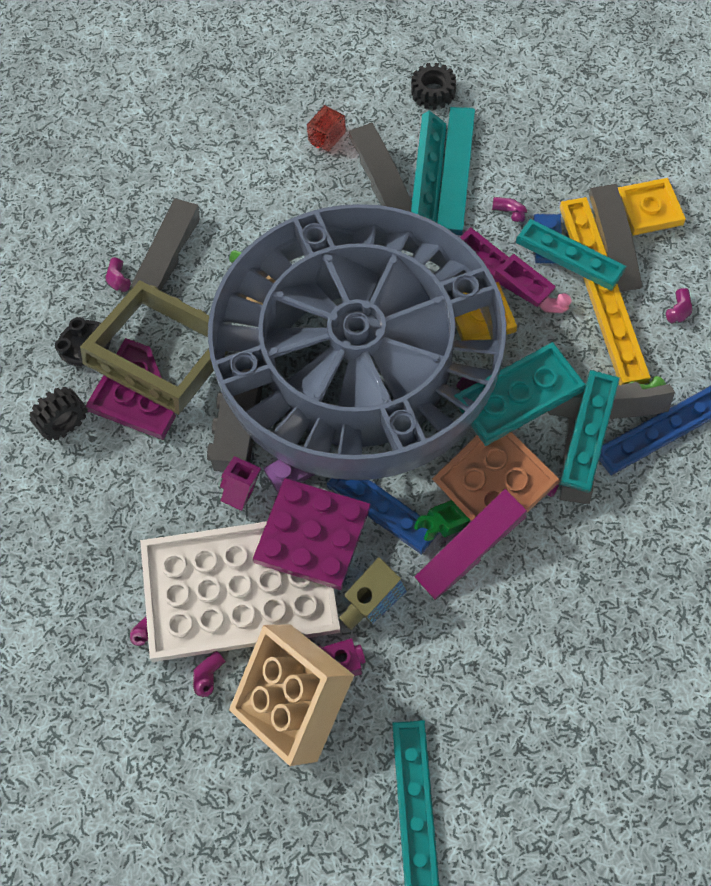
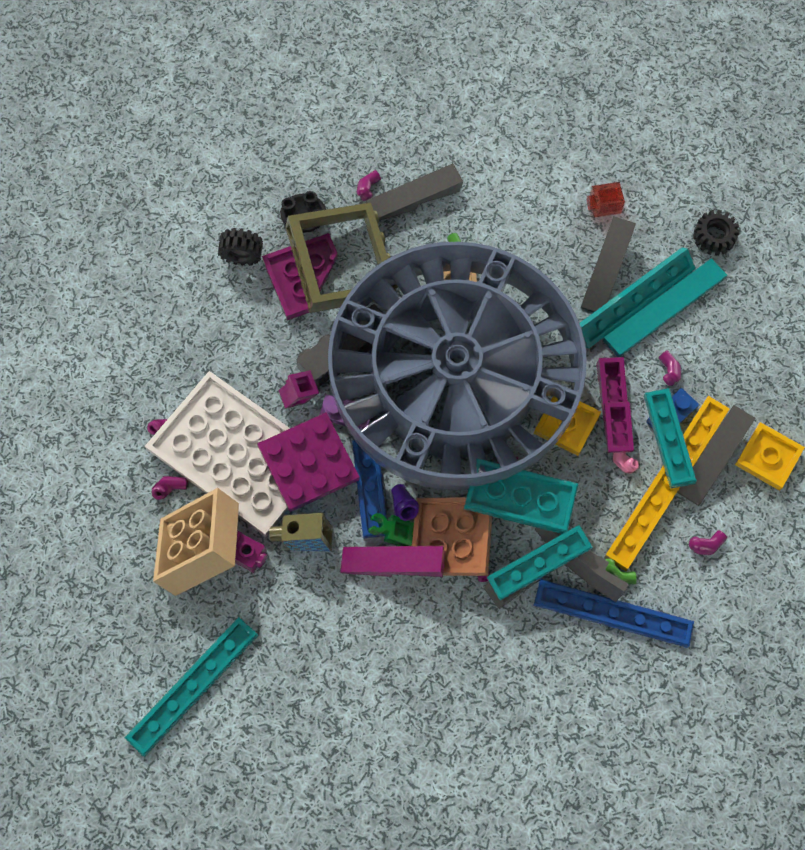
camera: 40 degrees right, 5 degrees up
(428, 491) = (404, 503): none -> dark purple cone

